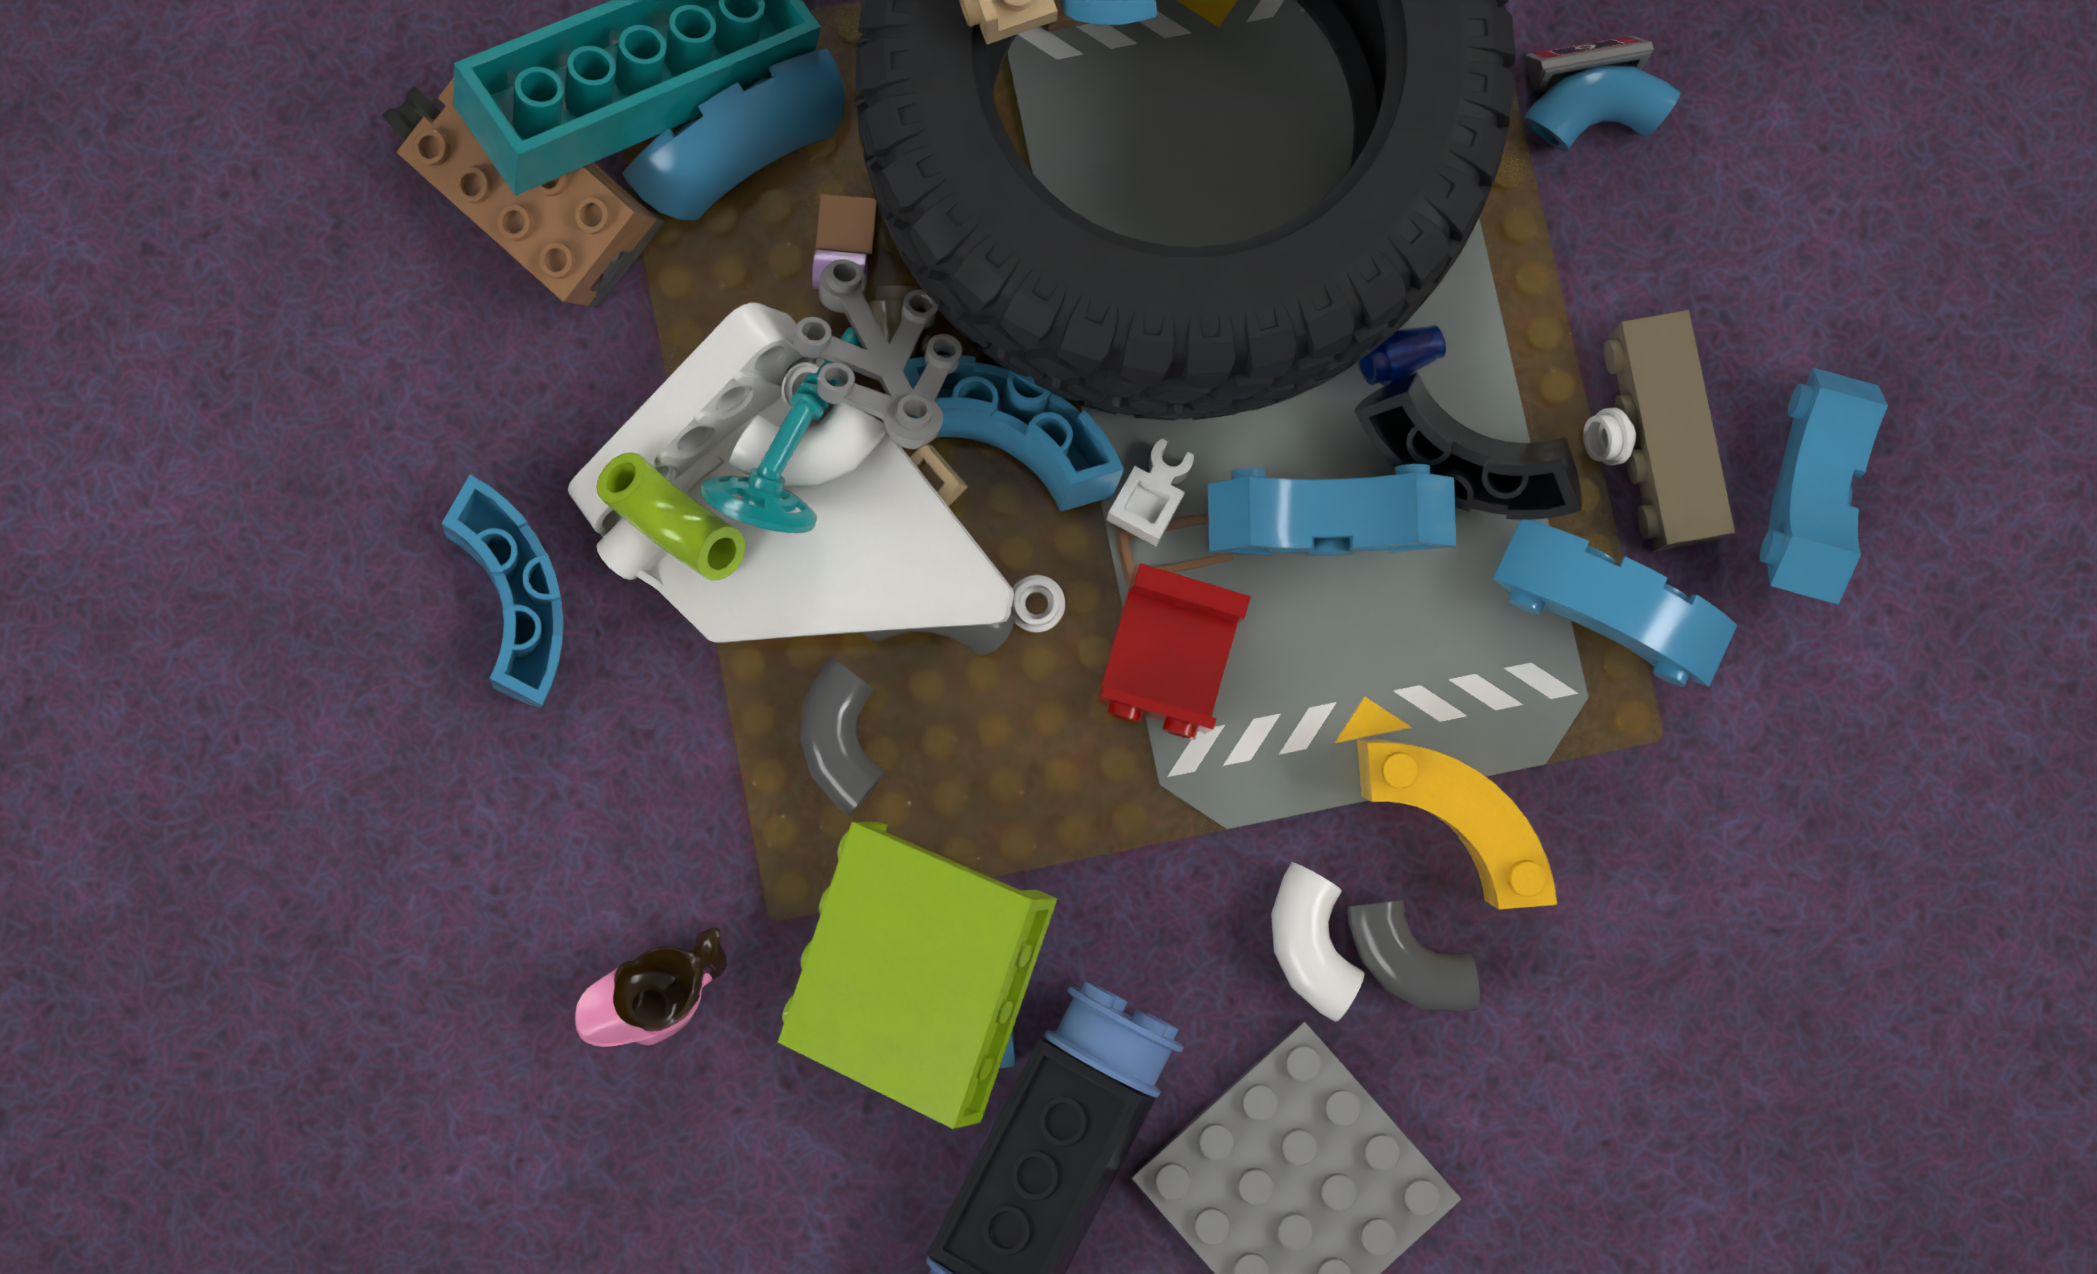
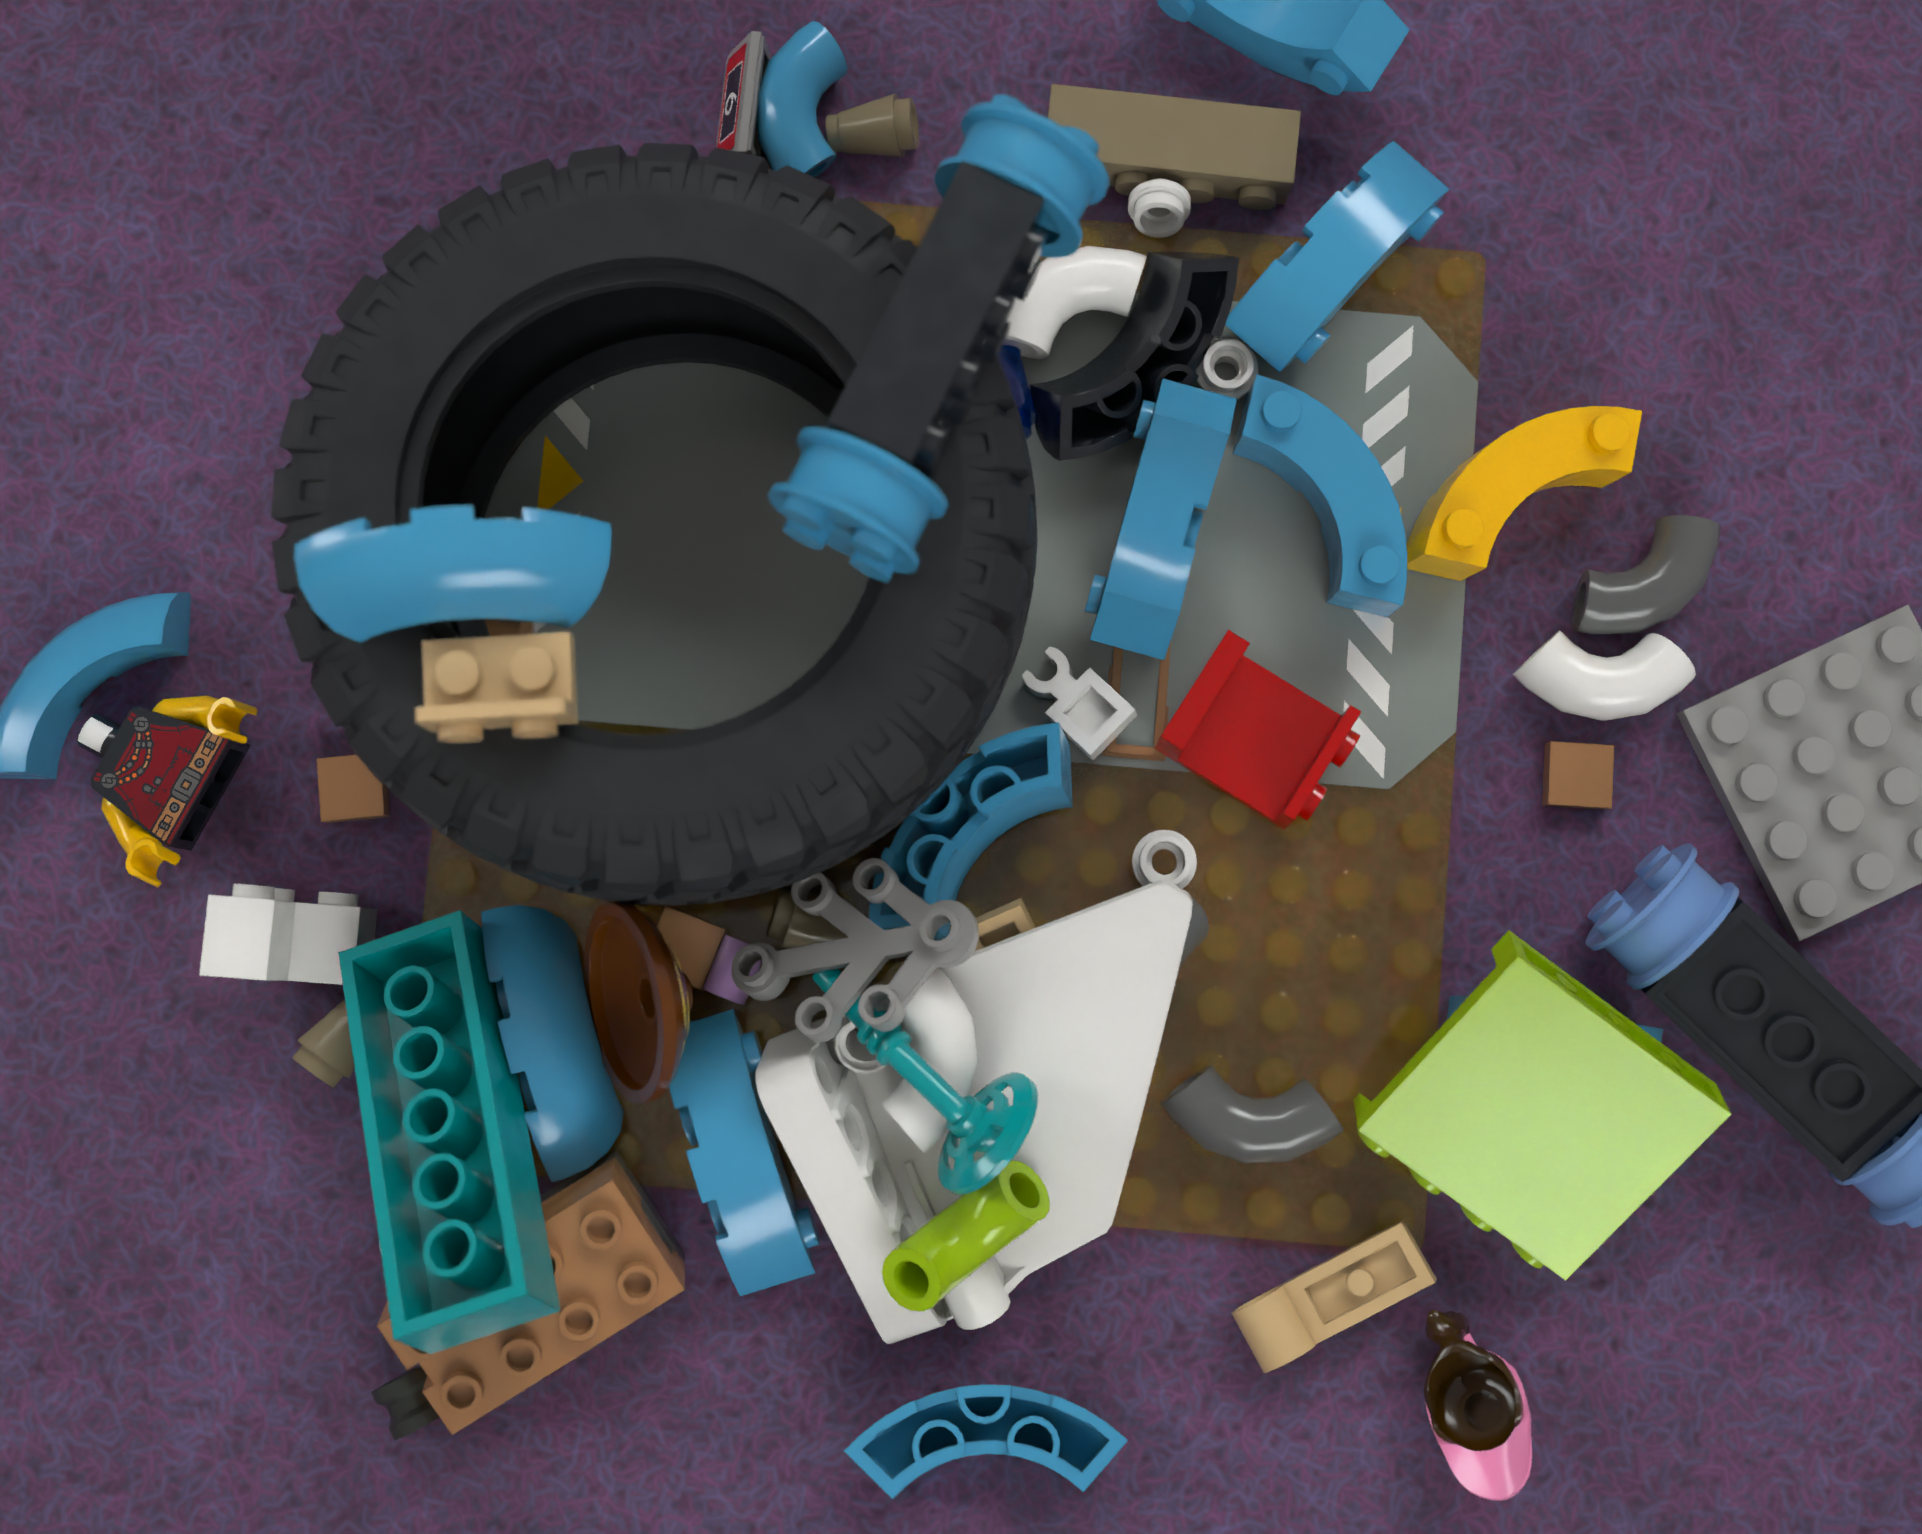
camera: 75 degrees left, 0 degrees up
(678, 312) = (737, 1158): none -> dark azure brick
(710, 851) = (1333, 1296): none -> tan plate
(788, 191) = (636, 1000): none -> reddish brown dish
(1220, 946) = (1578, 775): none -> medium nougat tile
(1396, 228) = (1004, 204): none -> brick
(1413, 662) = (1341, 482): none -> dark azure brick
(1496, 525) = (1232, 352): none -> white plate
(1510, 374) = (1071, 285): none -> white cylinder
(1604, 177) = (875, 128): none -> dark tan cone

